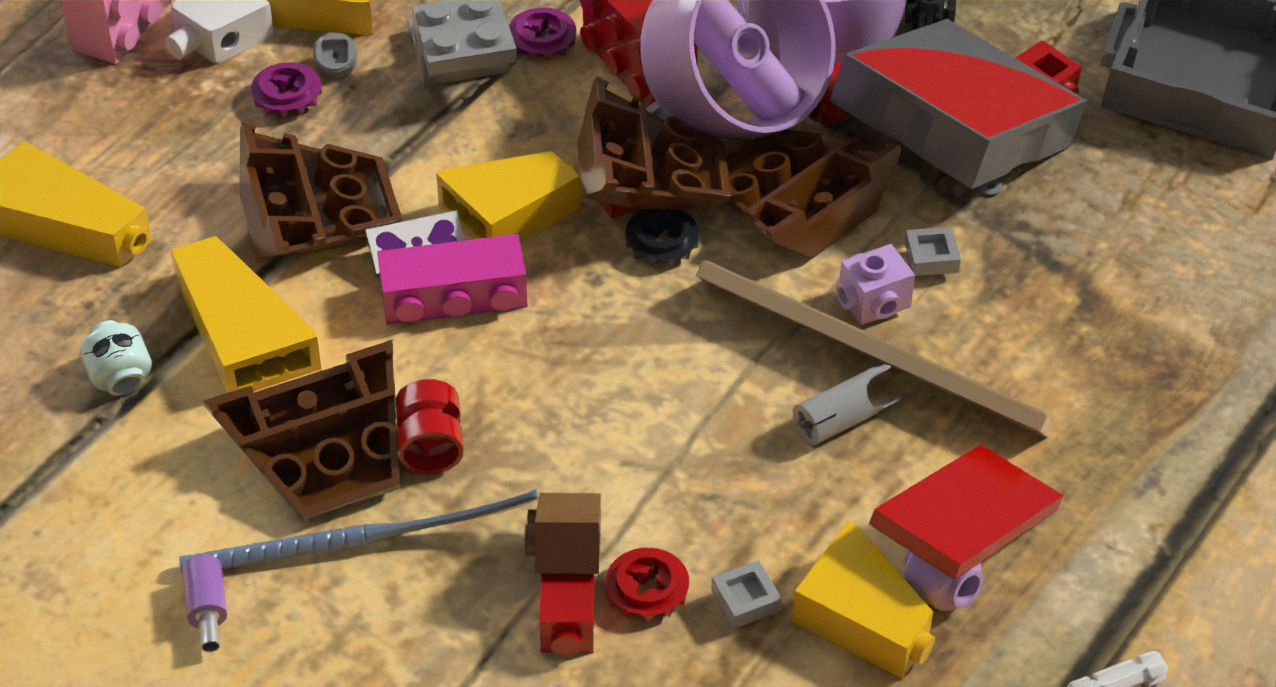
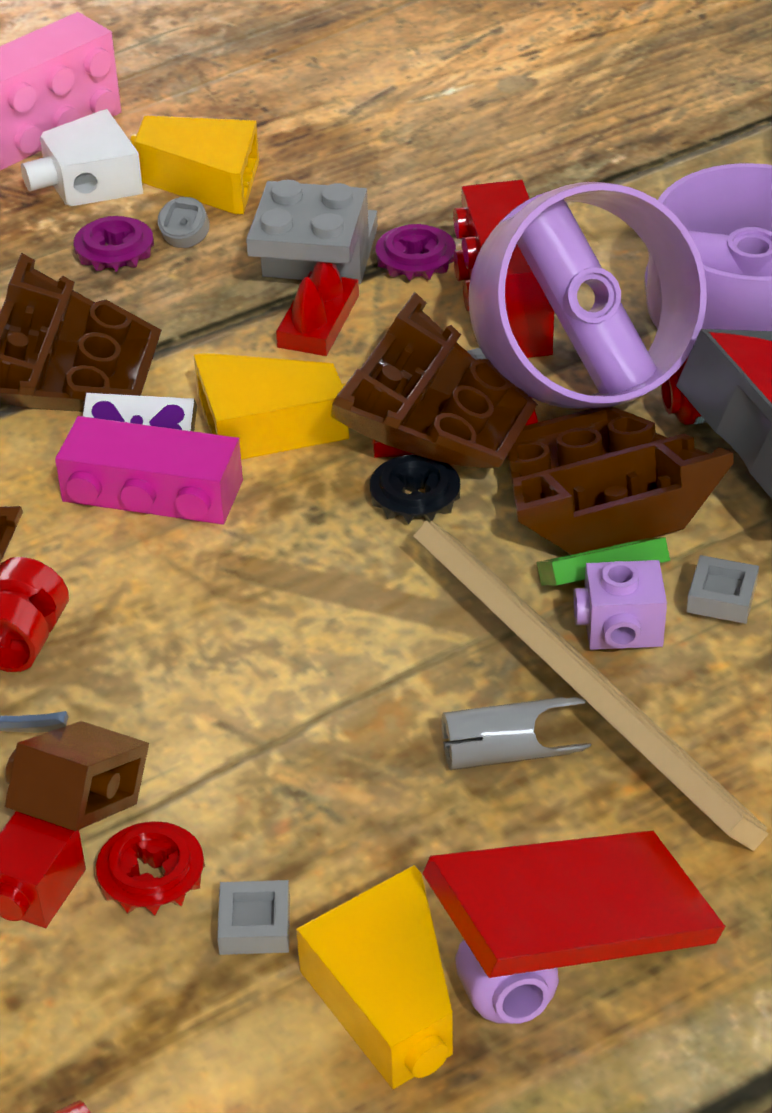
camera: 25 degrees right, 5 degrees down
(494, 107) = (318, 311): none -> red tile
(827, 260) = (572, 567): none -> bright green tile

